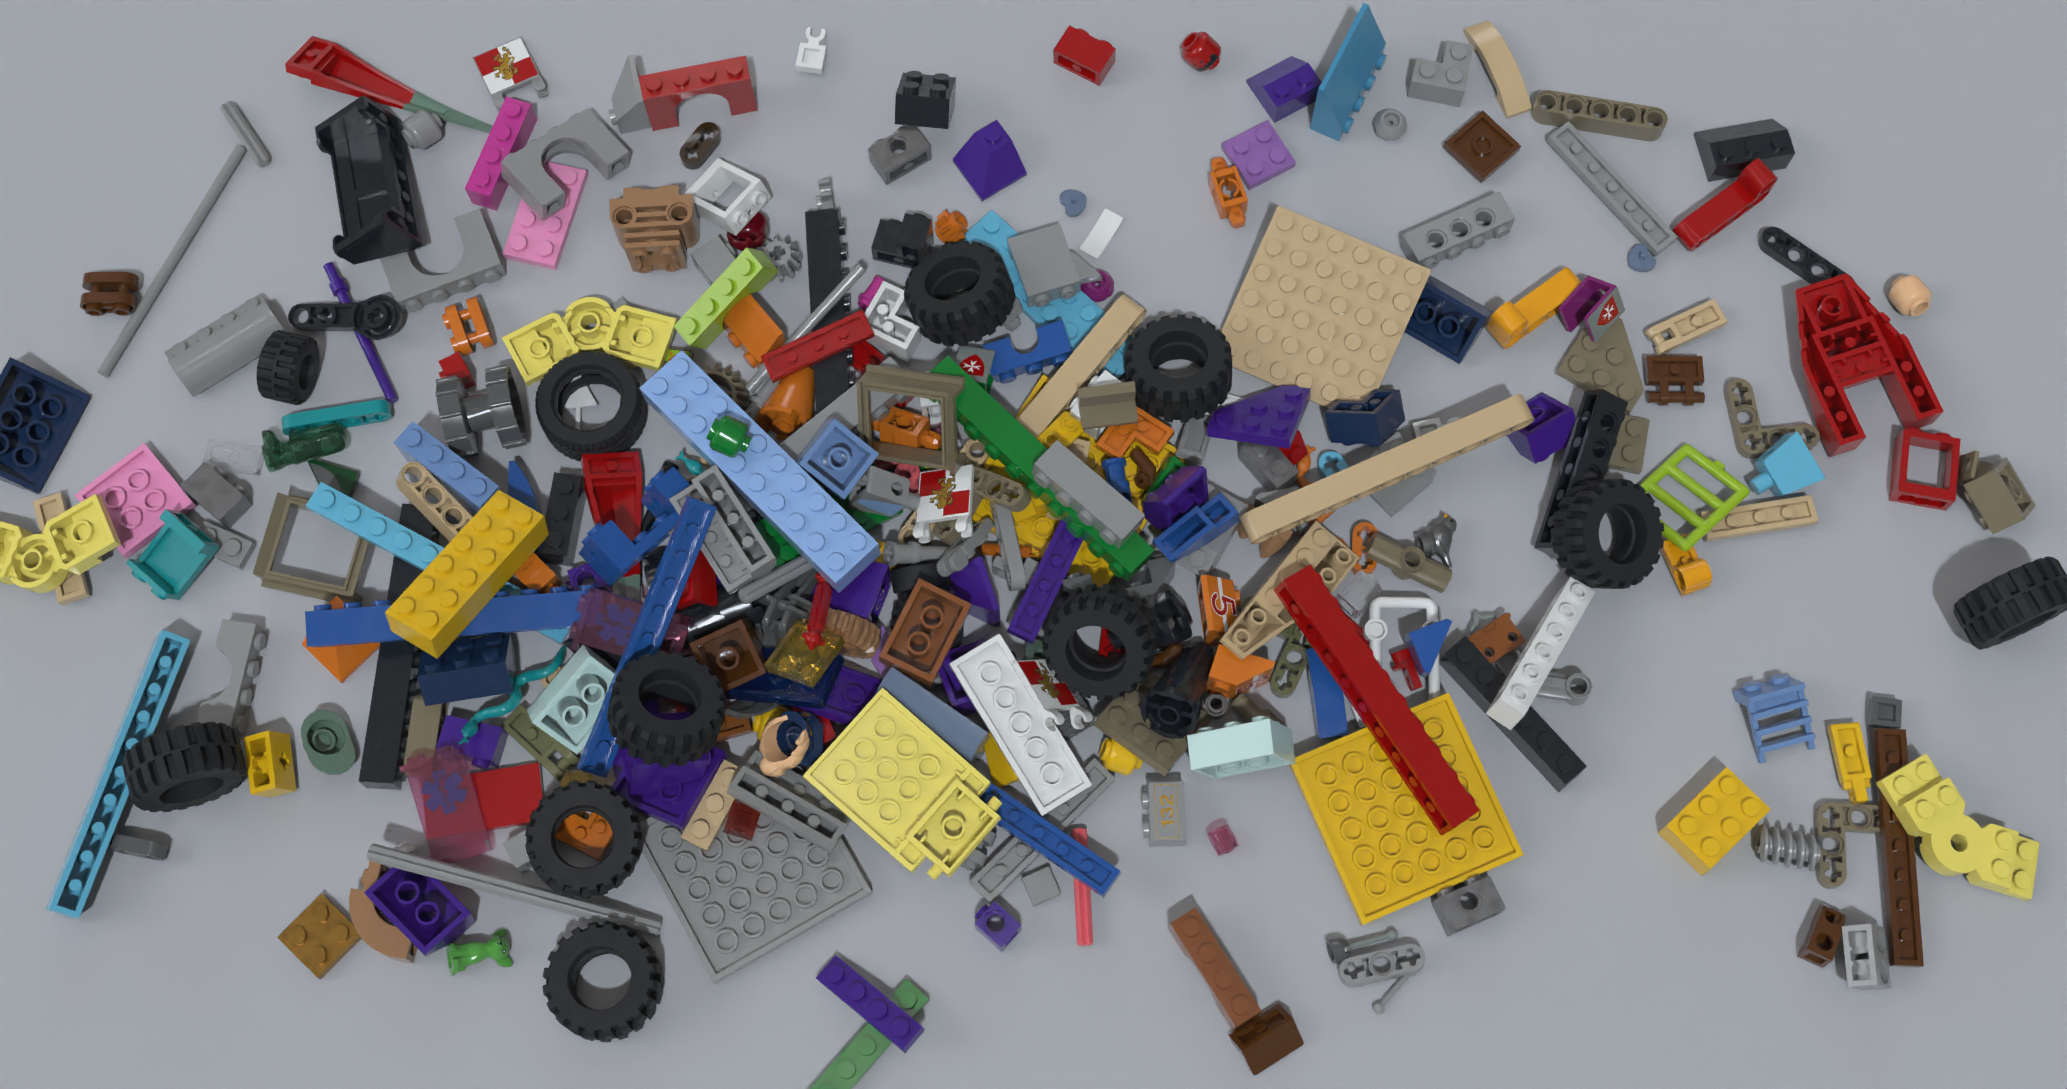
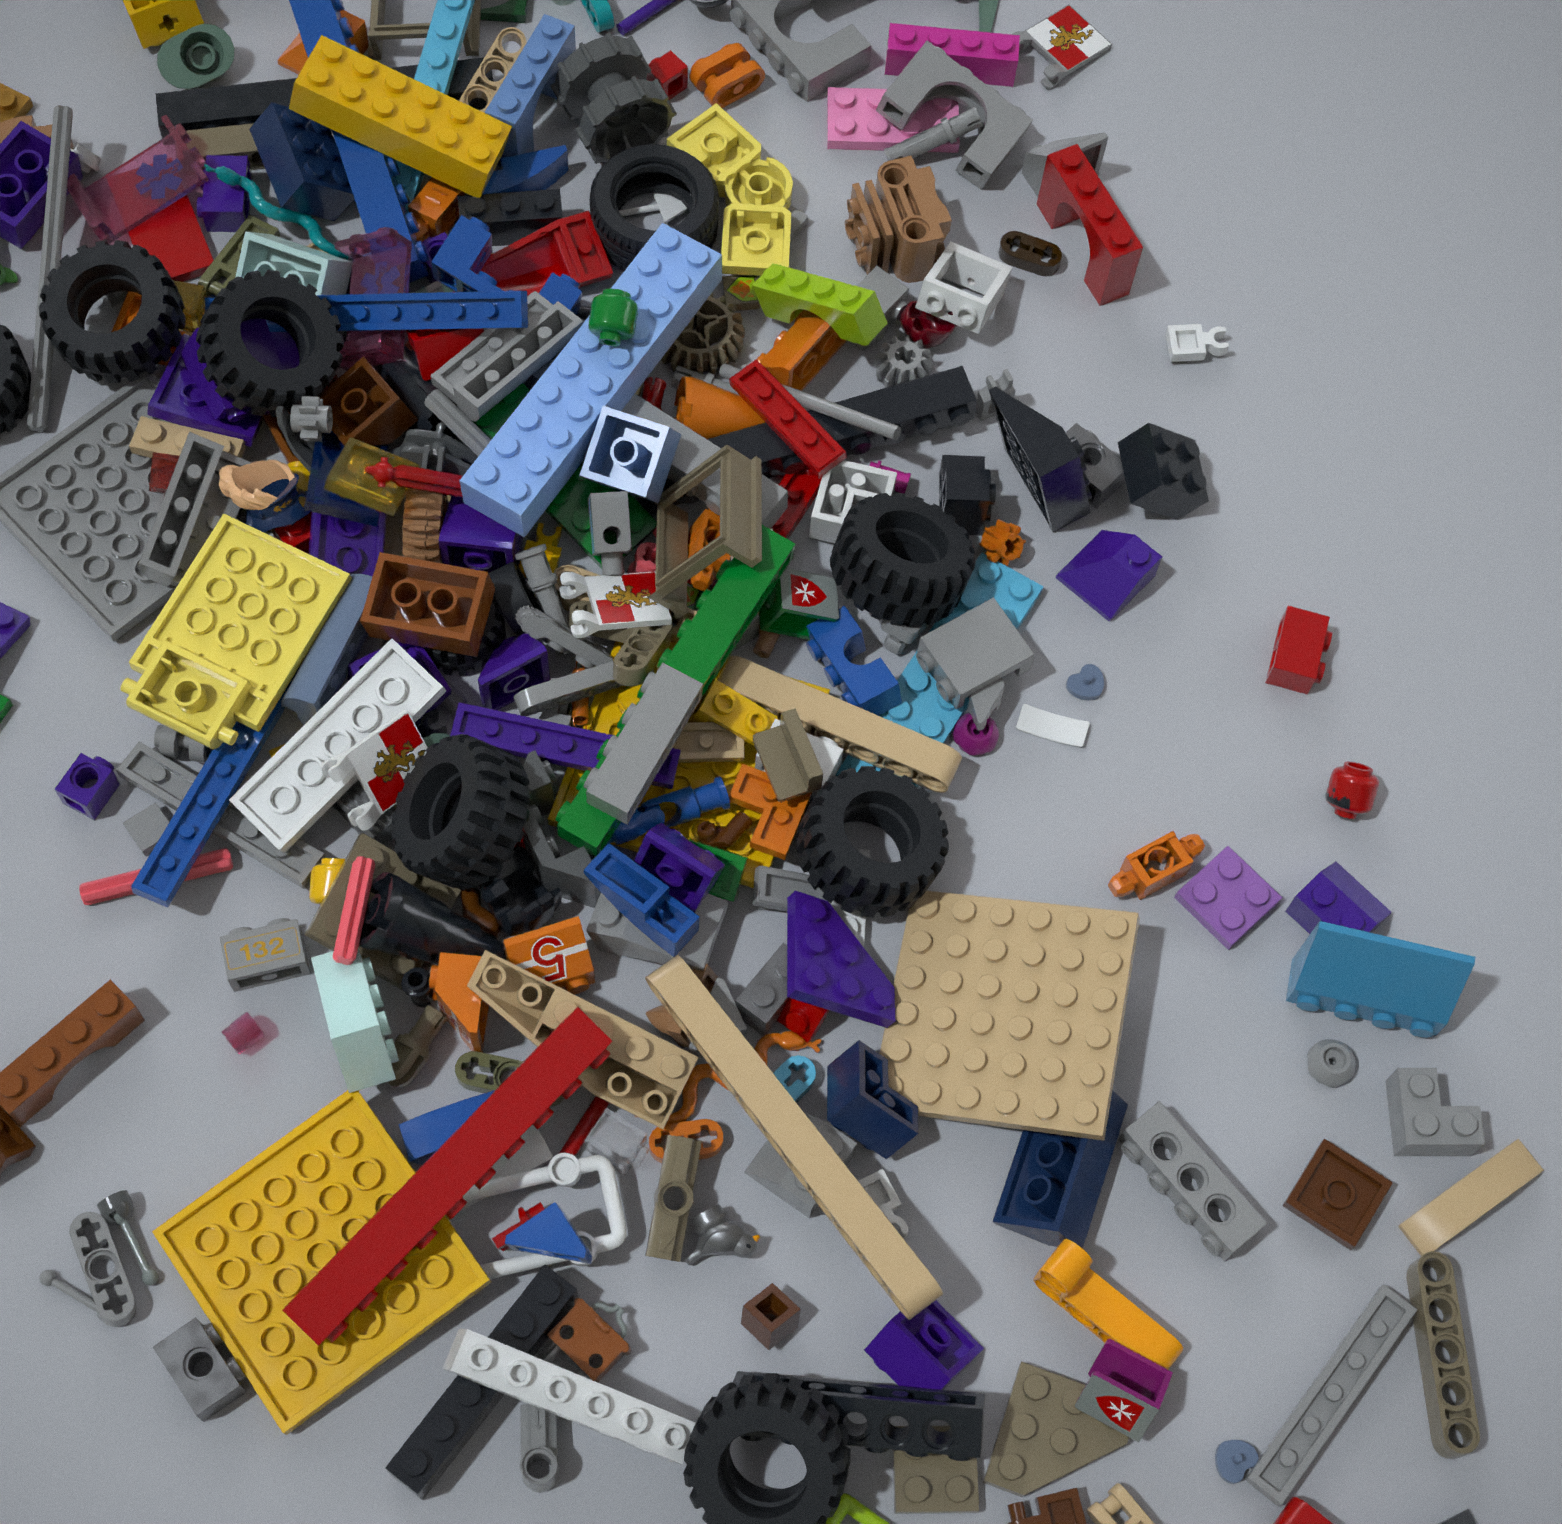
camera: 70 degrees right, 5 degrees down
(580, 188) = (936, 135): none -> light grey pin
(740, 690) = (311, 418): none -> light grey gear
(908, 175) = (1044, 459): none -> black slope
(1164, 730) = (354, 910): none -> coral axle
(1501, 518) = (770, 1316): none -> reddish brown plate

